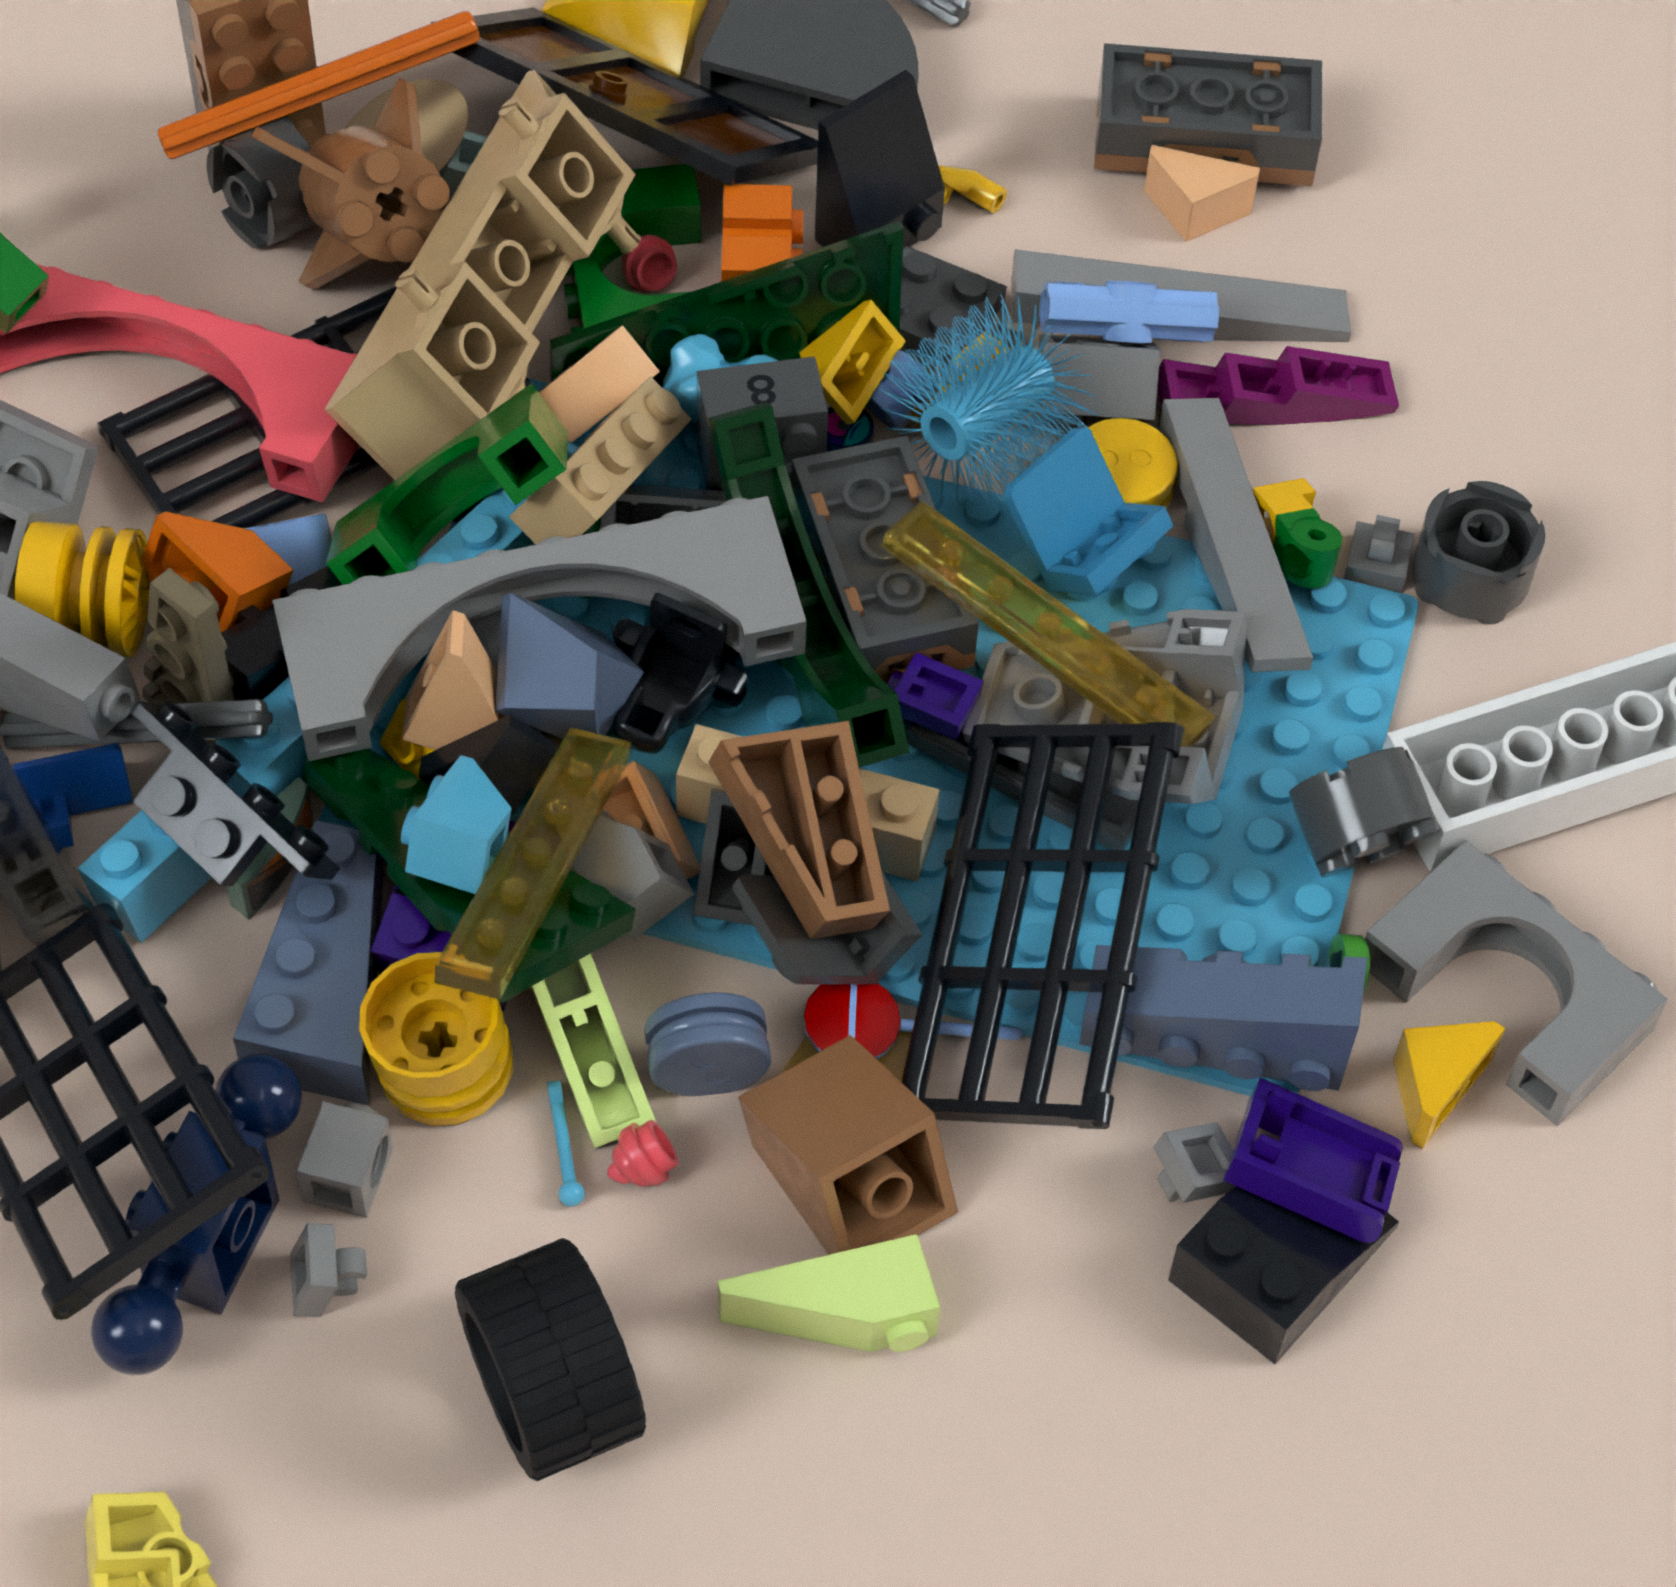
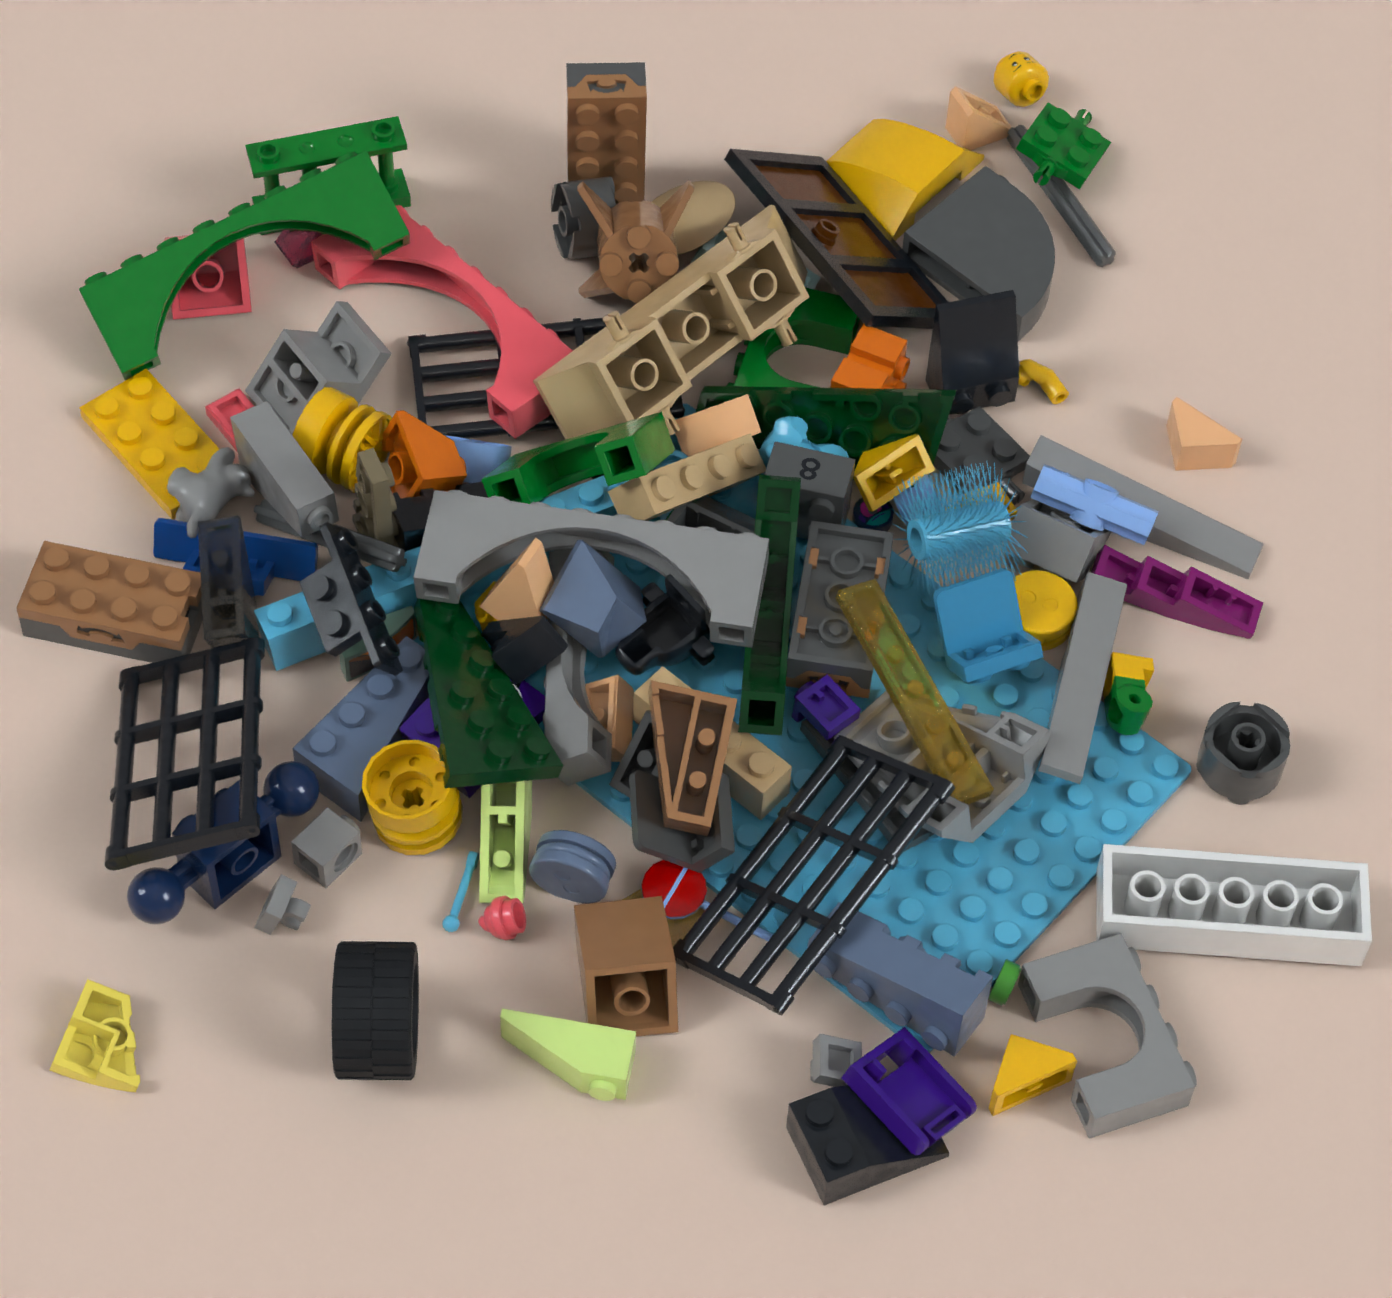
camera: 25 degrees right, 0 degrees up
(318, 85) = (639, 166): orange axle -> none
(457, 828) = (473, 674): medium azure slope -> none
(532, 864) = (511, 711): clear yellow tile -> none
(650, 264) = (804, 357): coral plate -> none
(1211, 106) = (1233, 386): dark grey piece -> none
(1363, 811) = (1059, 886): dark grey brick -> none
(1380, 554) = (1181, 729): light grey tile -> none

